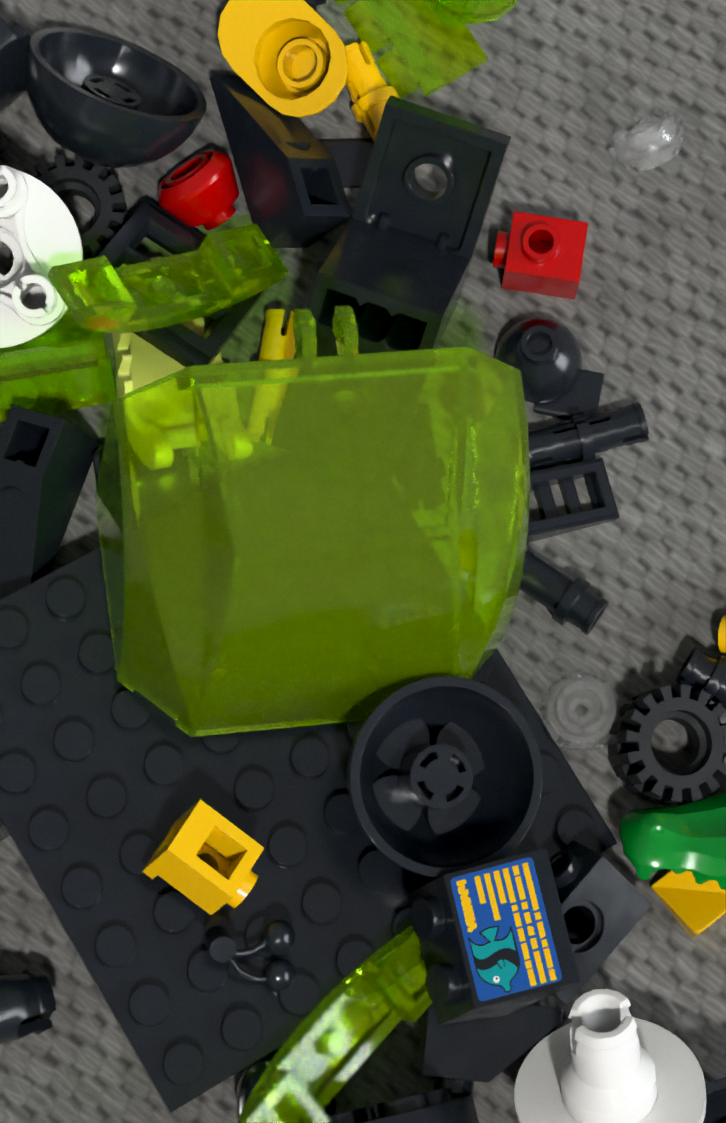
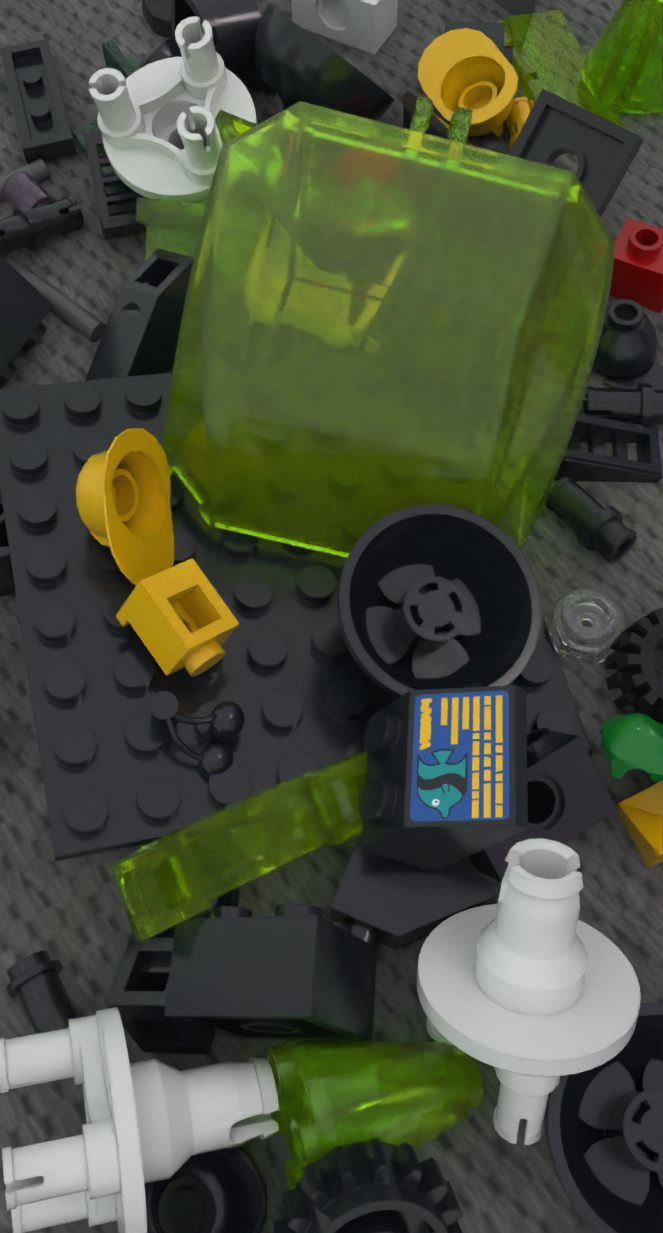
camera: 20 degrees right, 15 degrees down
(115, 758) = (127, 503): none -> yellow piece

